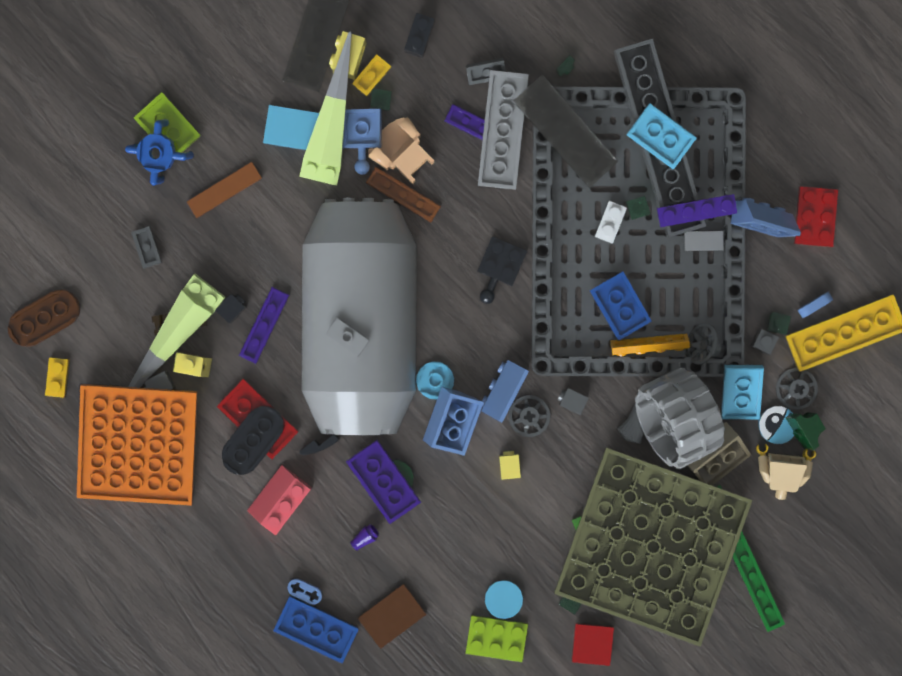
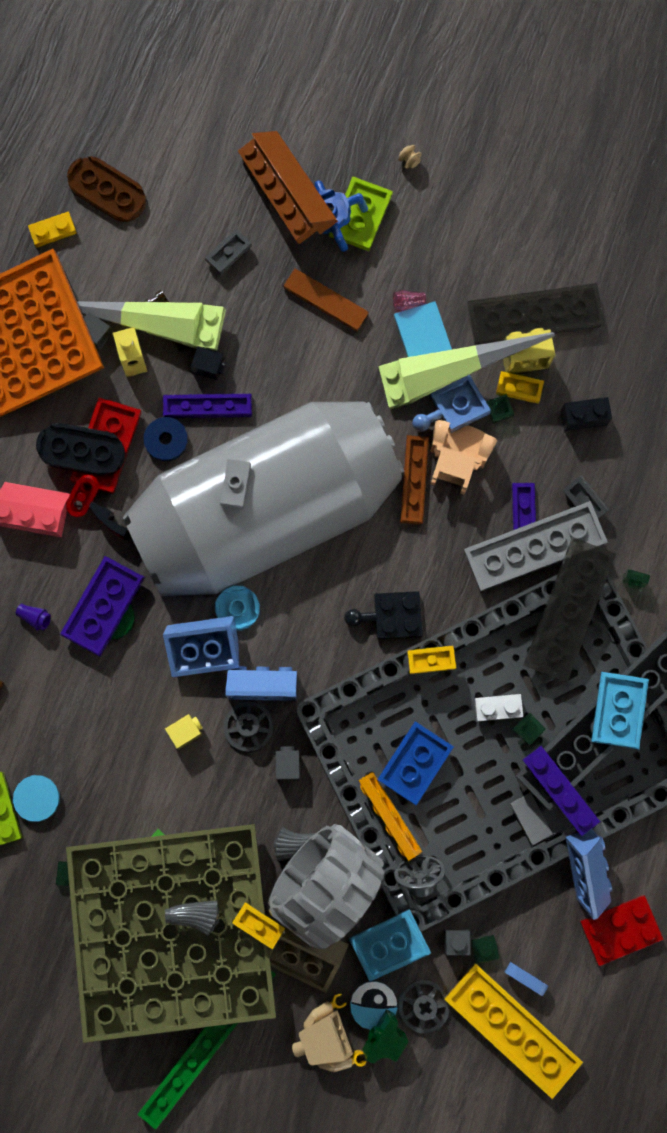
camera: 60 degrees right, 10 degrees down
(117, 174) = (287, 185): none -> dark orange slope
(139, 63) = (411, 158): none -> tan wheel
(257, 125) = (406, 299): none -> clear pink cone
(263, 370) = (163, 426): none -> dark blue tile
(288, 455) = (83, 494): none -> red plate
(551, 255) = (431, 659): none -> yellow plate
(592, 644) = (31, 921): red tile -> none
(653, 519) = (198, 915): none -> dark grey piece
(681, 480) = (258, 925): none -> yellow plate

